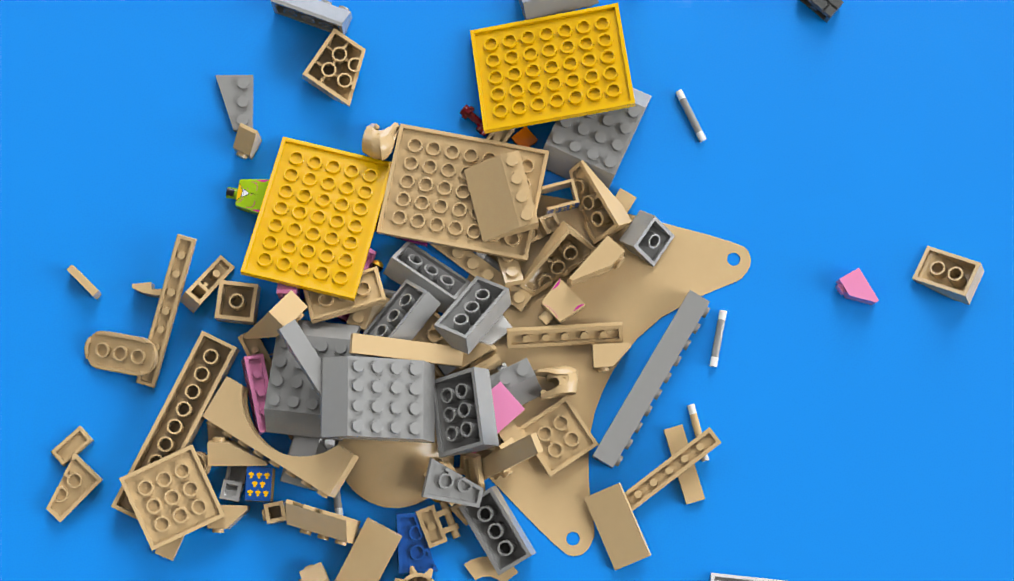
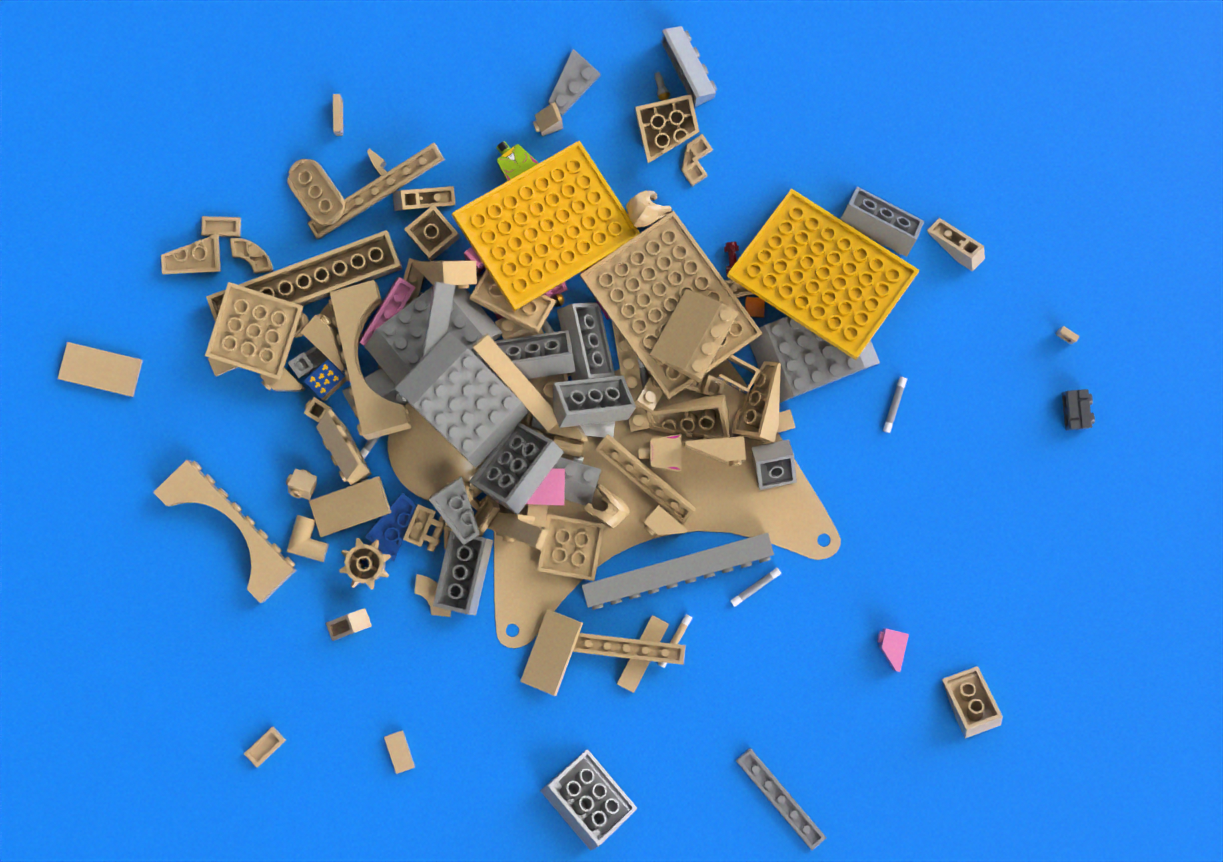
camera: 45 degrees right, 5 degrees up
(114, 444) = (252, 254): none -> tan tile
(311, 47) = (663, 93): none -> light grey piece
(382, 81) = (691, 167): none -> tan tile
(883, 474) = (781, 799): none -> light grey tile

